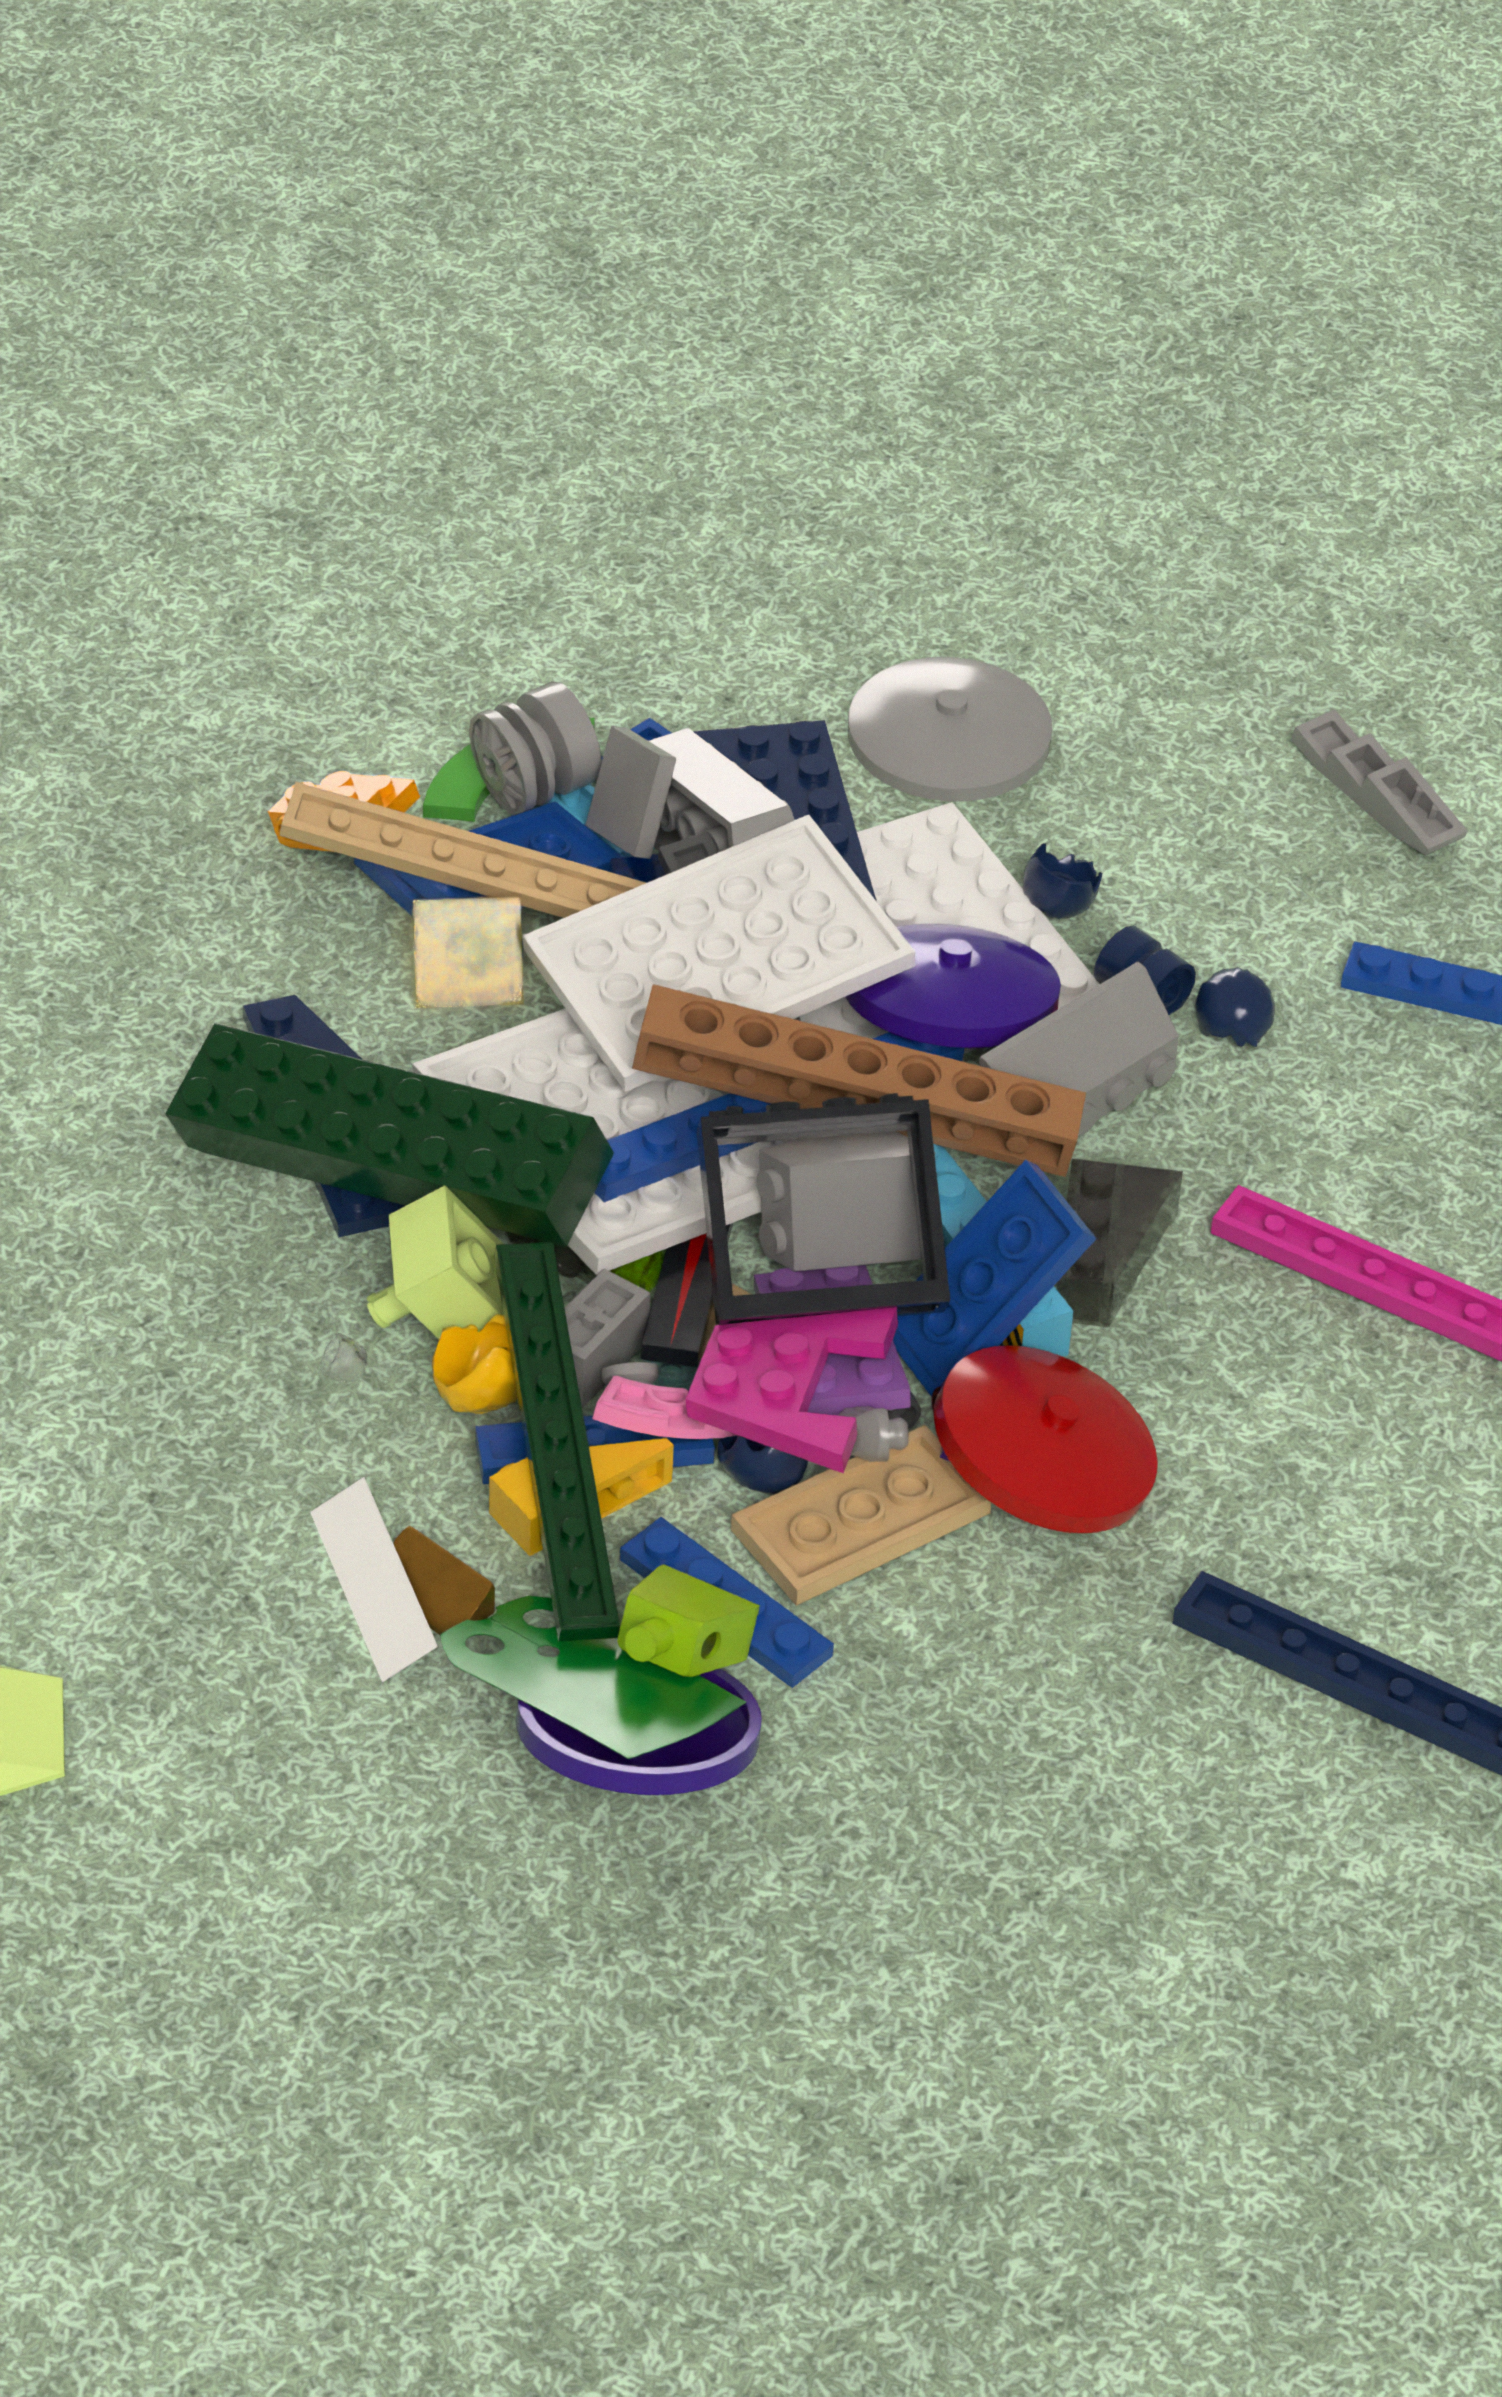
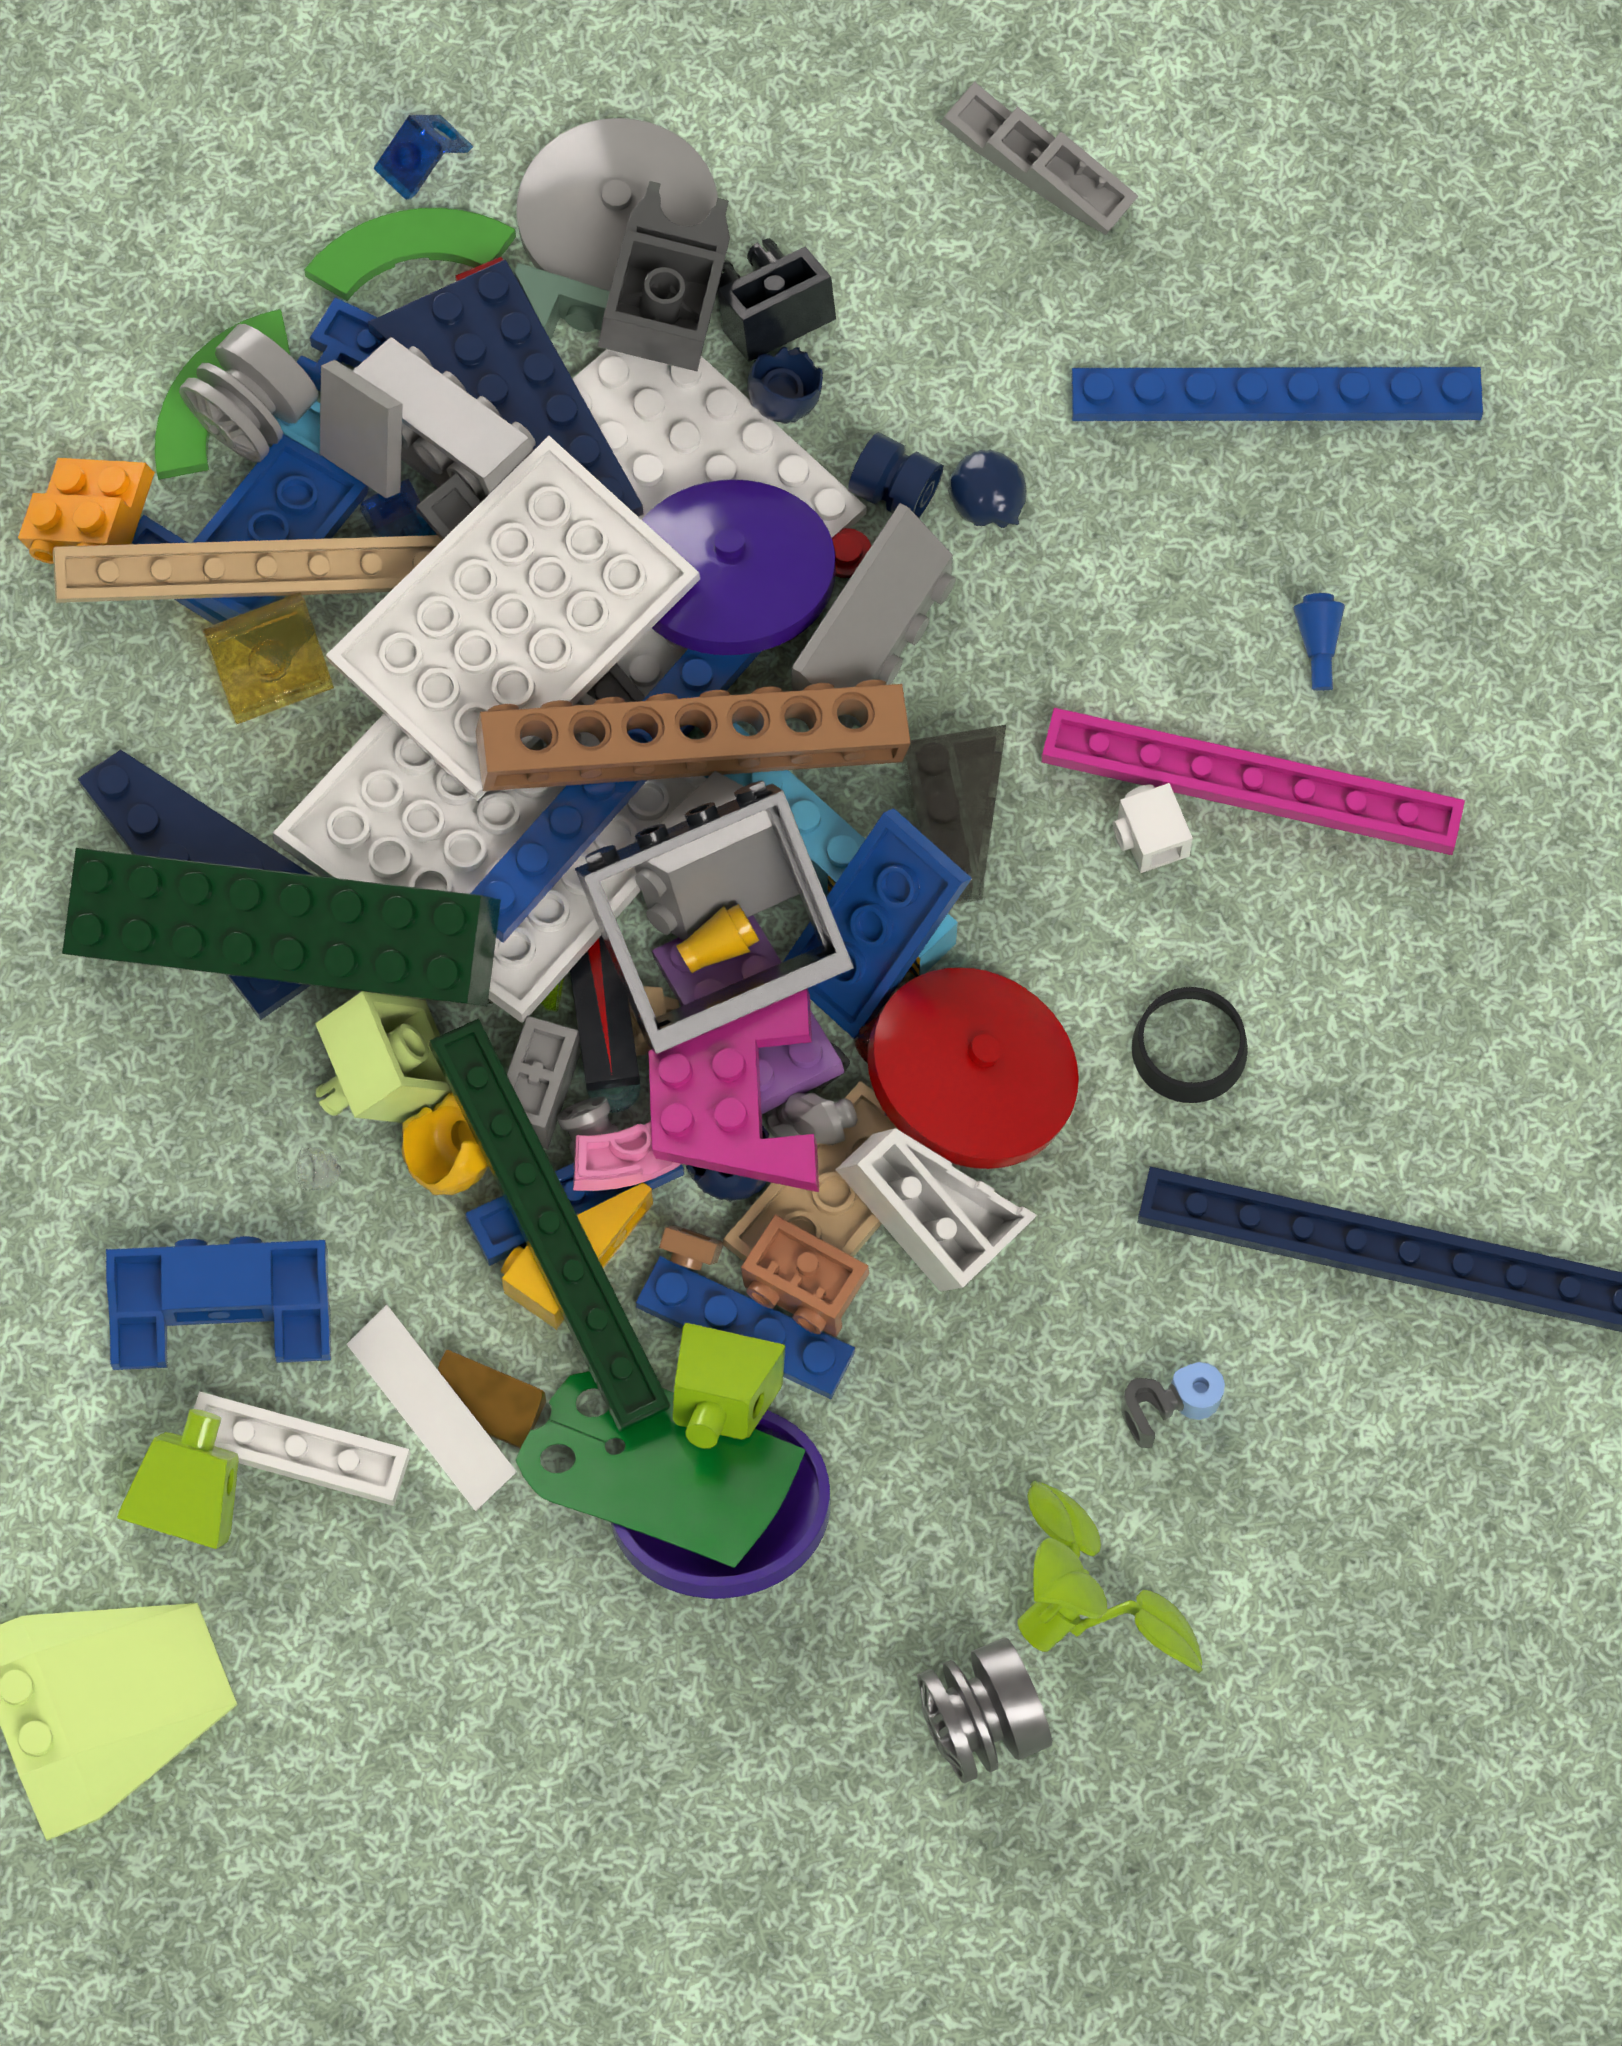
camera: 15 degrees left, 25 degrees up
(93, 1562) = (186, 1484): none -> lime torso
(197, 1417) = (218, 1286): none -> blue bracket
(221, 1574) = (308, 1450): none -> white plate
(696, 1513) = (690, 1248): none -> medium nougat plate
(710, 697) = (405, 236): none -> bright green tile
(770, 637) = (417, 151): none -> clear blue bracket
(800, 1558) = (802, 1276): none -> nougat bracket
(825, 1262) = (718, 939): none -> yellow cone
(848, 1969) = (984, 1710): none -> flat silver wheel
(874, 772) = (563, 298): none -> sand green slope
(956, 1529) = (931, 1208): none -> white wedge
(963, 1912) = (1067, 1590): none -> lime plant
(970, 766) = (665, 284): none -> dark grey brick
(1077, 816) = (775, 301): none -> black brick
(1175, 1783) = (1193, 1391): none -> leg
(1275, 1527) = (1188, 1091): none -> black tyre
(1305, 1304) = (1152, 827): none -> white brick

